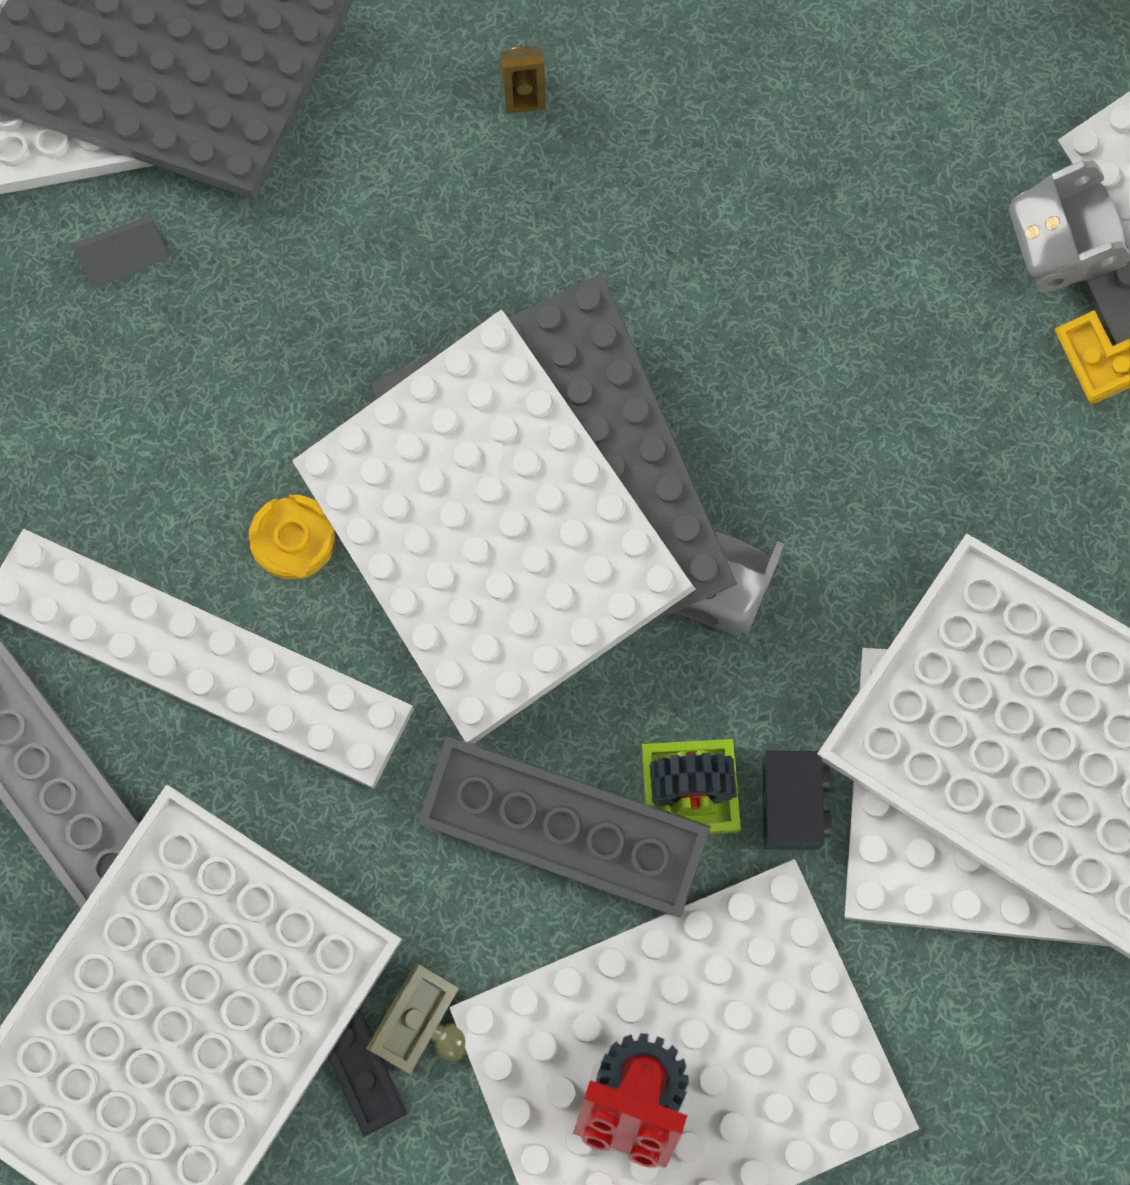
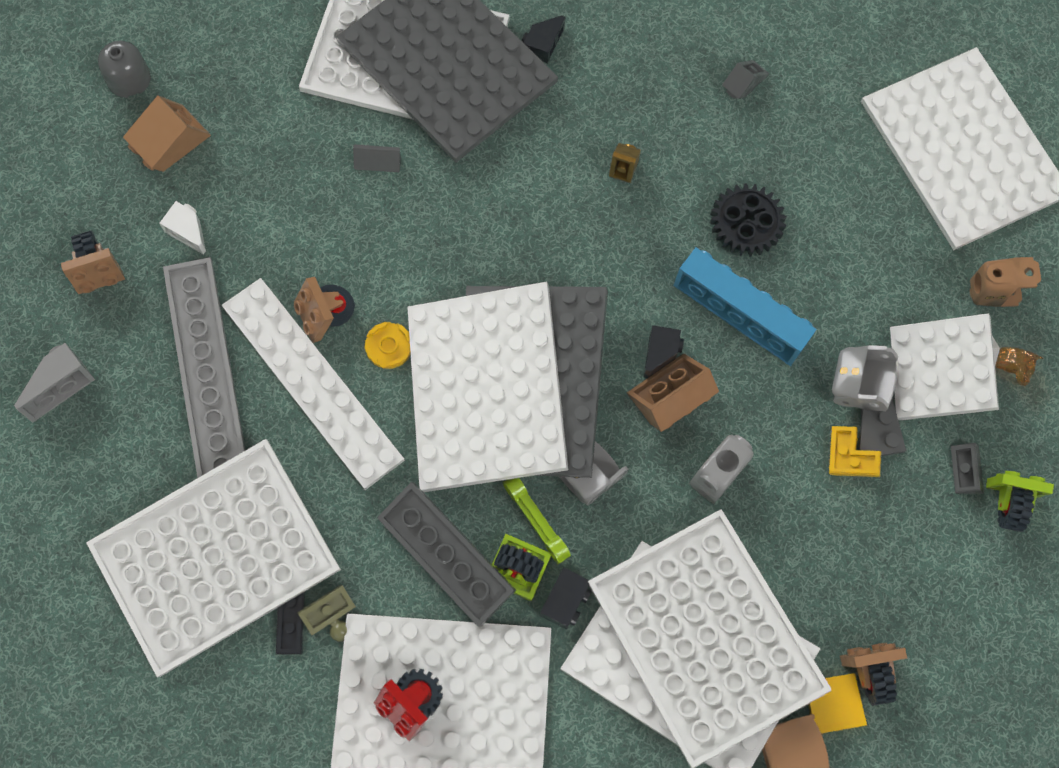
camera: 20 degrees right, 0 degrees up
(151, 527) = (322, 307): none -> medium nougat plate
(725, 721) = (552, 542): none -> lime piece
(728, 62) = (735, 203): none -> black gear
(732, 333) = (662, 348): none -> black slope
(787, 391) = (674, 391): none -> medium nougat slope
(828, 208) = (744, 306): none -> dark azure brick
(932, 469) = (722, 467): none -> light grey piece

